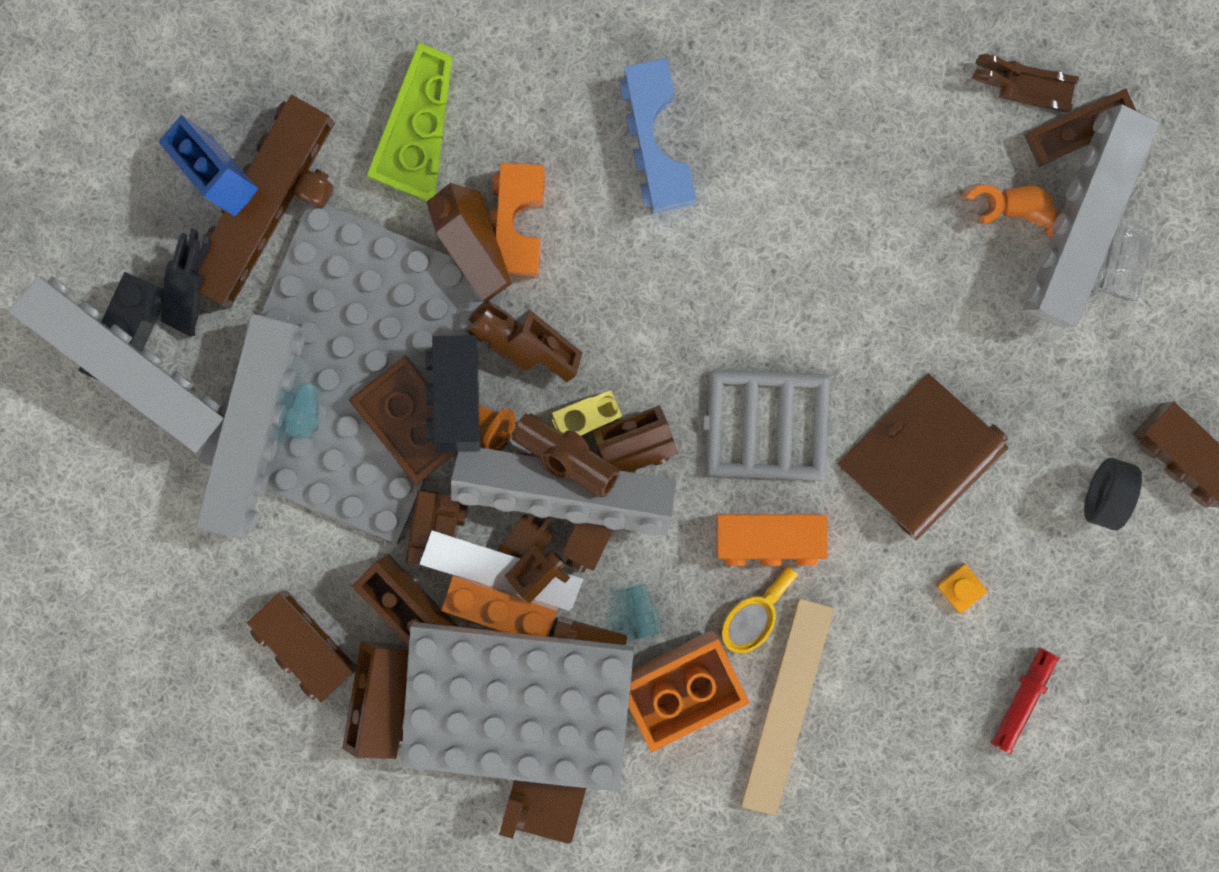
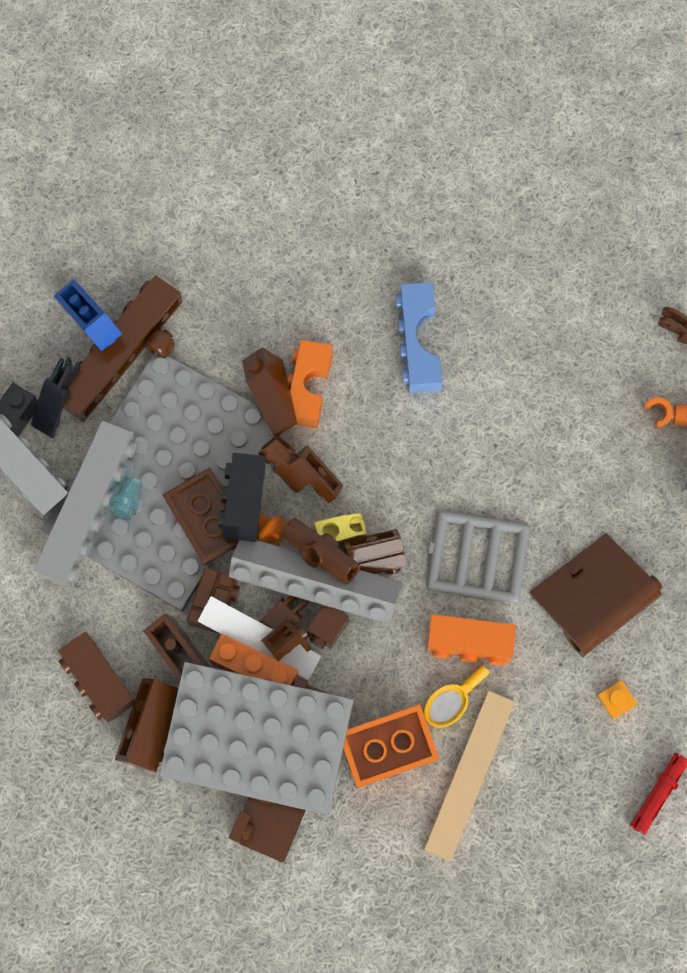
camera: 10 degrees right, 15 degrees down
(413, 135) = (240, 313): lime wing -> none
(642, 613) = (364, 687): clear light blue cone -> none

